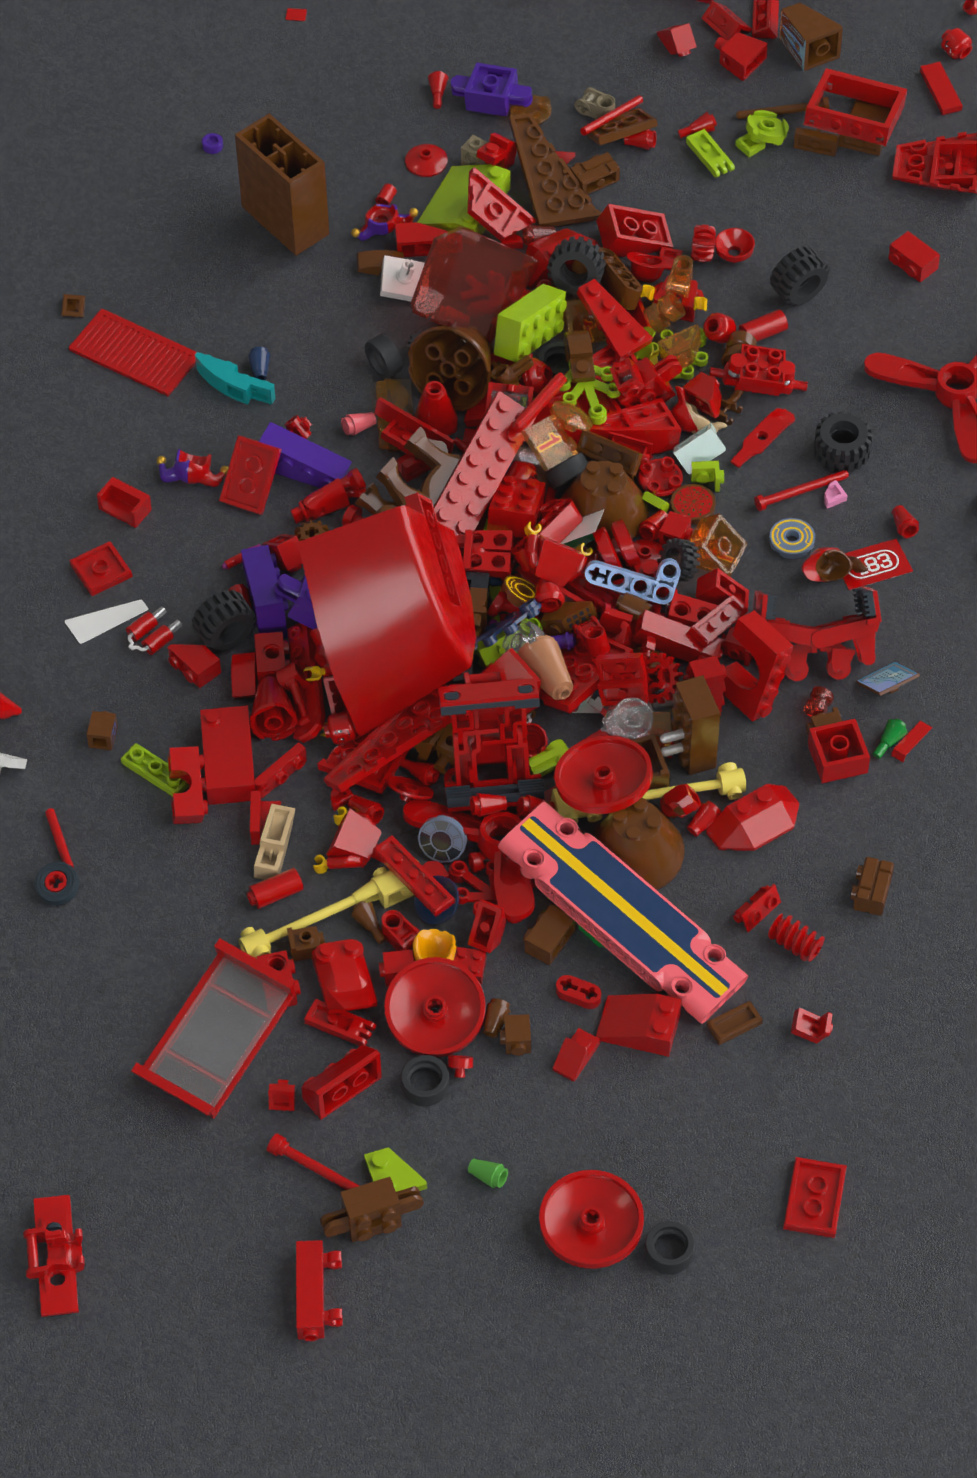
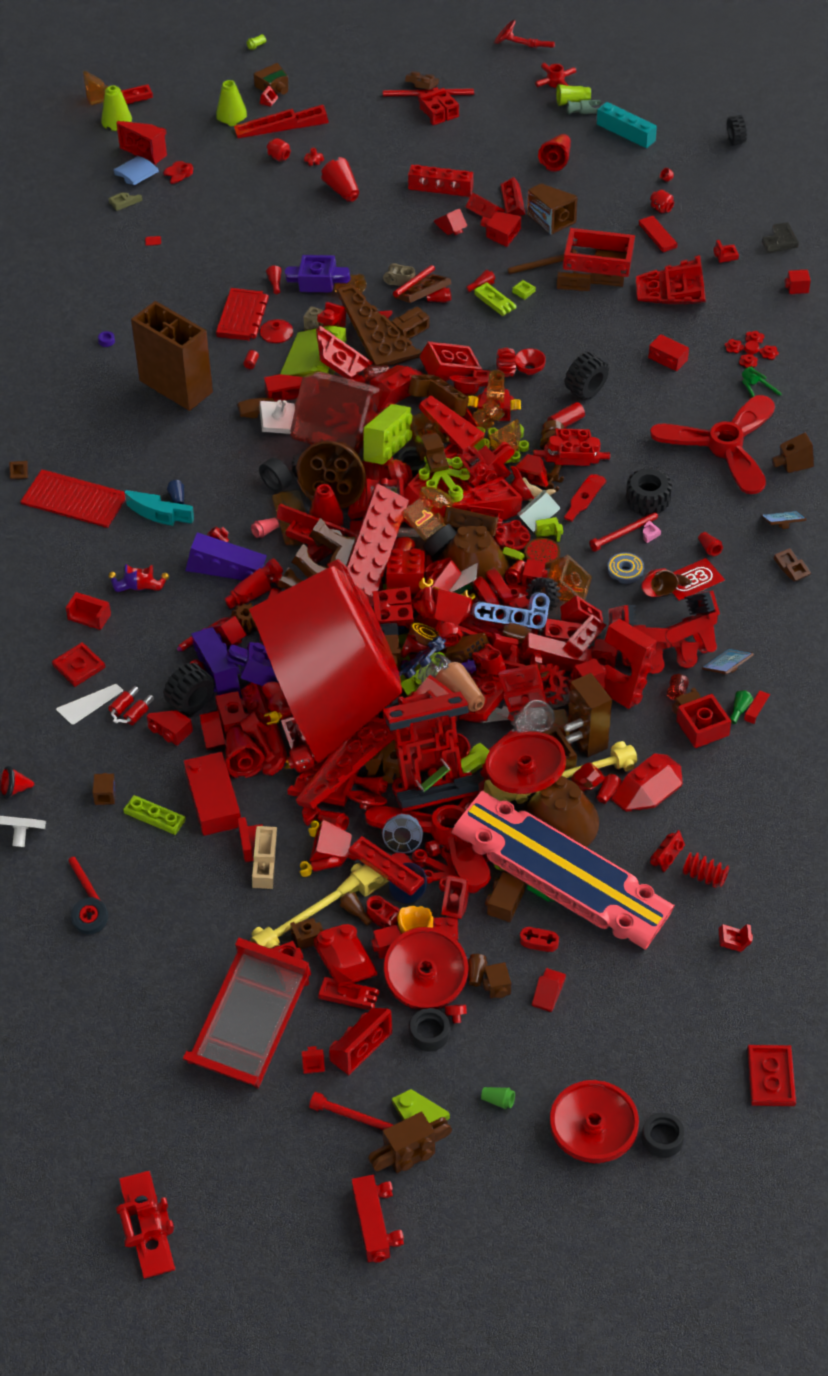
camera: 10 degrees left, 5 degrees down
(186, 765) = (181, 805): red arch -> none
(250, 474) = (187, 575): red tile -> none
(275, 888) = (272, 893): red brick -> none
(281, 770) = (258, 799): red hinge -> none
(382, 221) = (252, 377): piece -> none
(387, 132) = (242, 314): none -> red hinge
(487, 804) = (434, 800): red cone -> none
(496, 774) = (435, 776): none -> bright green piece
(508, 374) = (381, 472): reddish brown axle -> none
(528, 803) = (467, 796): red cone -> none
(539, 402) = (409, 489): red axle -> none
(578, 250) = (412, 375): black tyre -> none
(640, 1022) = (596, 955): red slope -> none
(719, 327) = (532, 421): red head -> none
(734, 1022) = (671, 945): reddish brown tile -> none
(766, 127) = (534, 276): lime plate -> none
(873, 885) = (756, 821): reddish brown brick -> none

